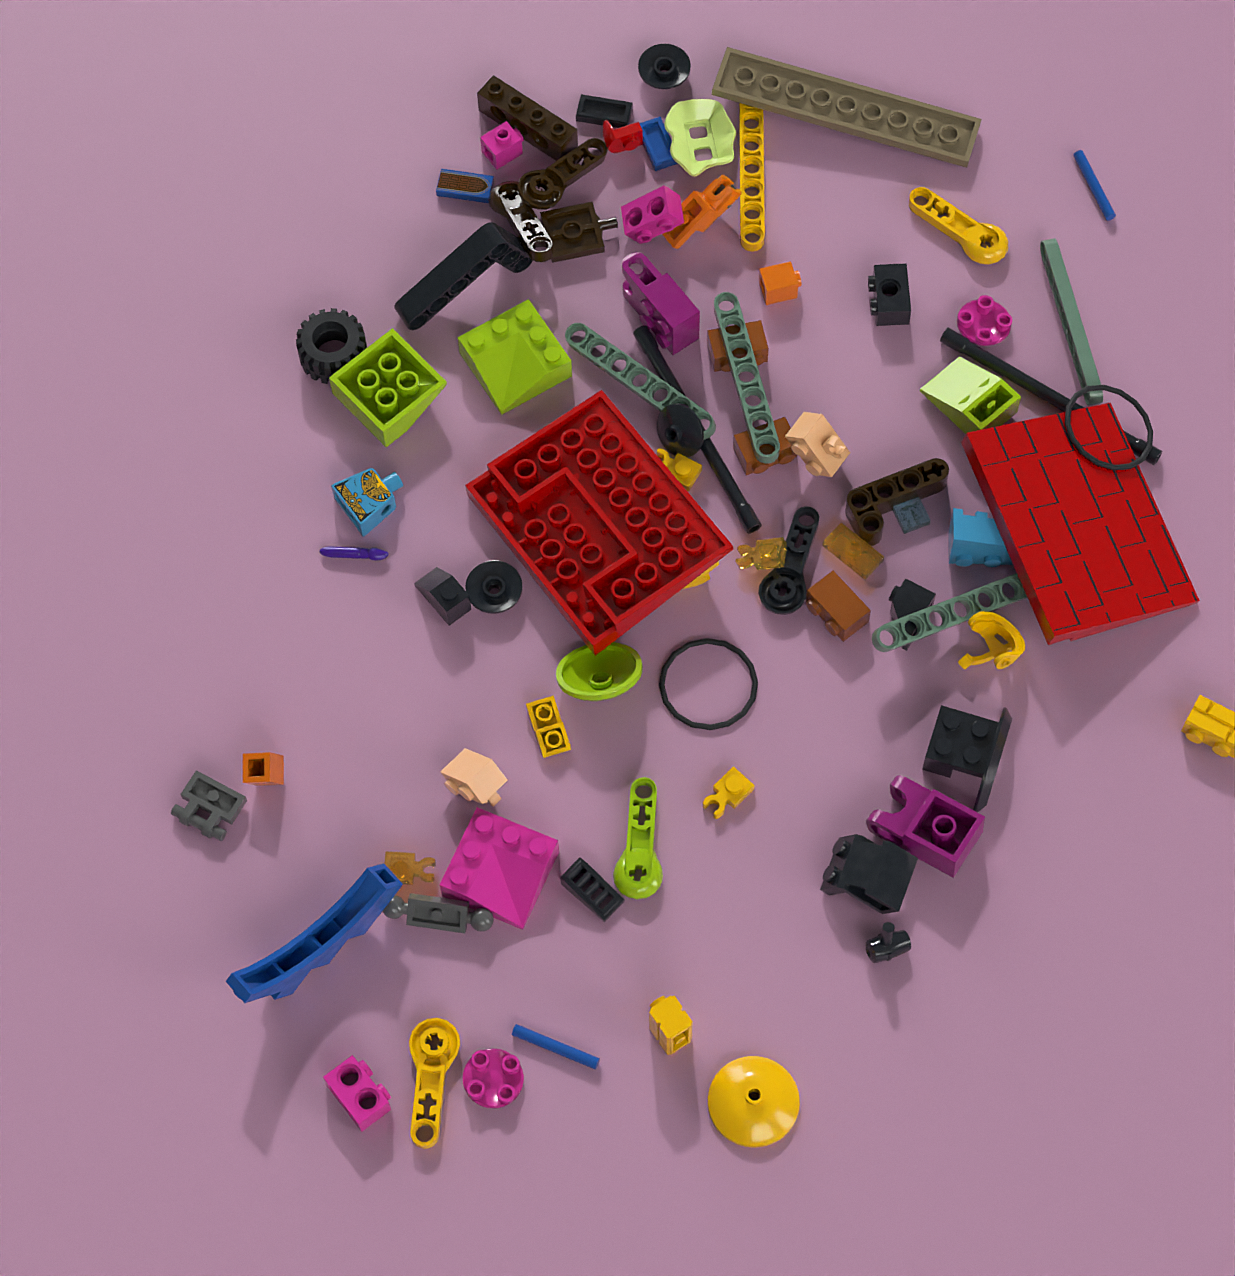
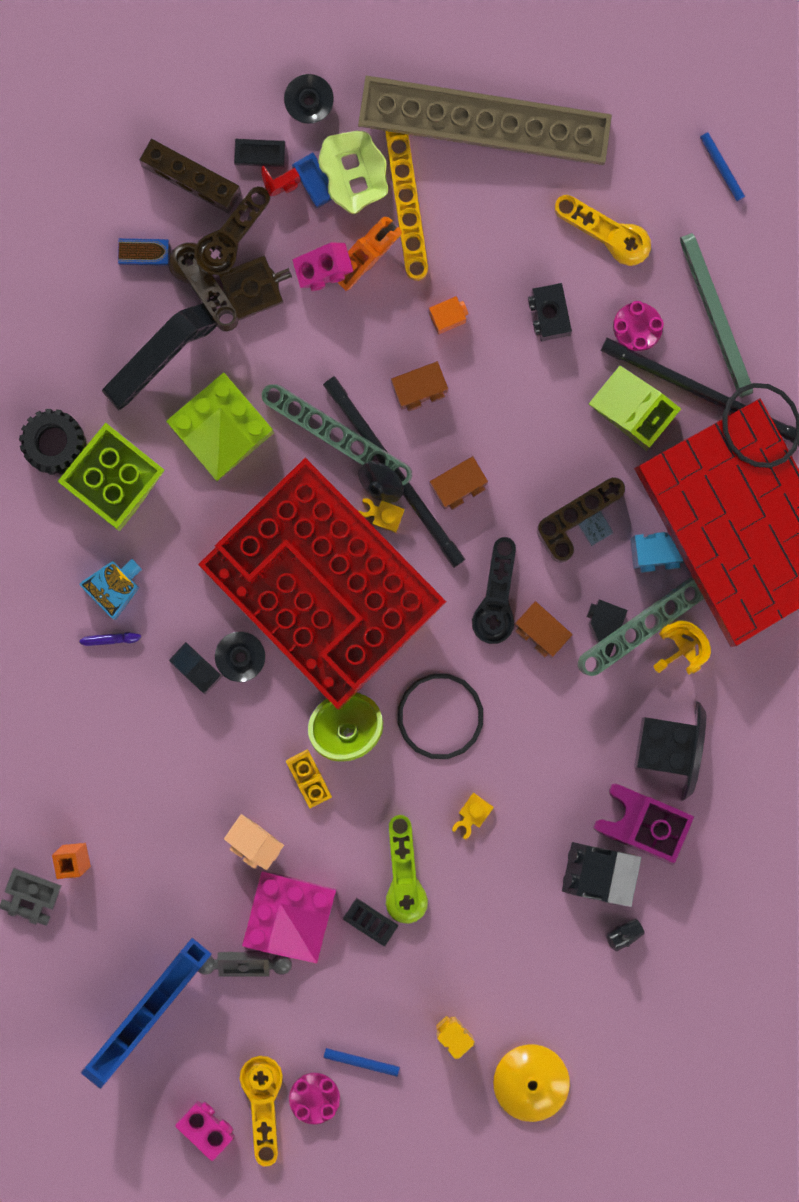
camera: 15 degrees left, 20 degrees up
(406, 867) = (207, 928): clear yellow plate -> none
(502, 145) = (171, 205): dark pink brick -> none
(660, 304) = (343, 358): magenta brick -> none
(746, 389) = (432, 410): sand green beam -> none
(766, 554) = (473, 591): clear yellow plate -> none
(817, 444) = (505, 480): light nougat brick -> none
(853, 551) = (549, 572): clear yellow plate -> none

